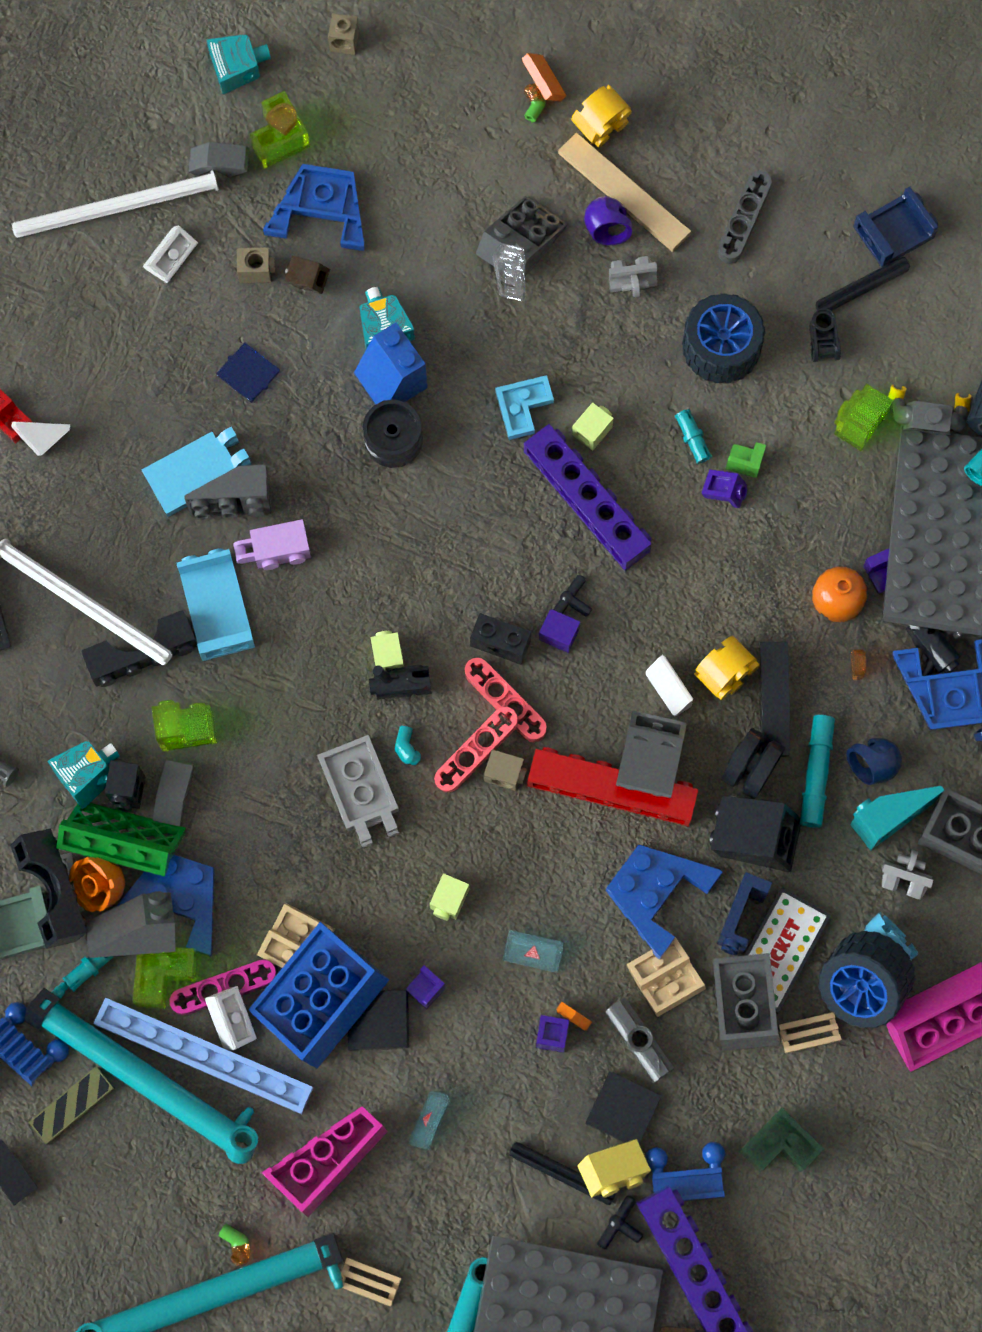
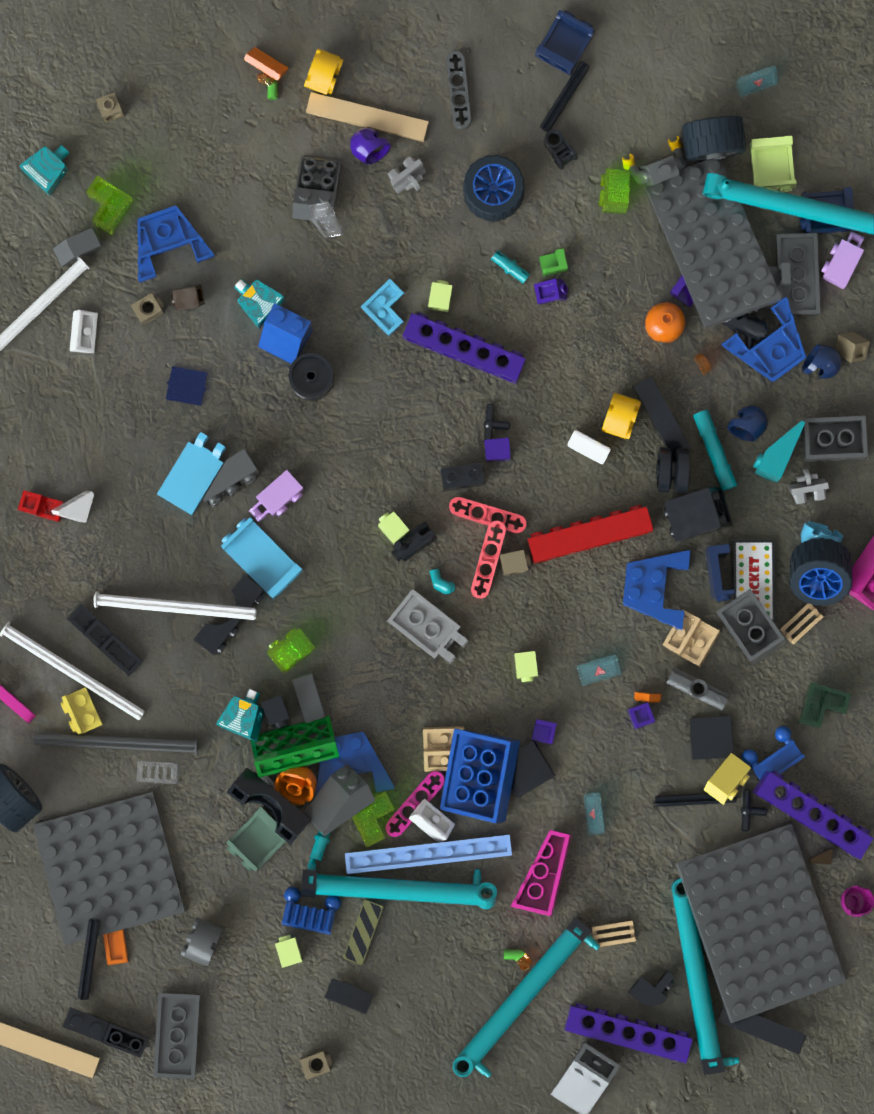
camera: 30 degrees left, 10 degrees up
(282, 117) = (108, 196): clear orange tile -> none
(651, 754) = (604, 501): dark grey slope -> none

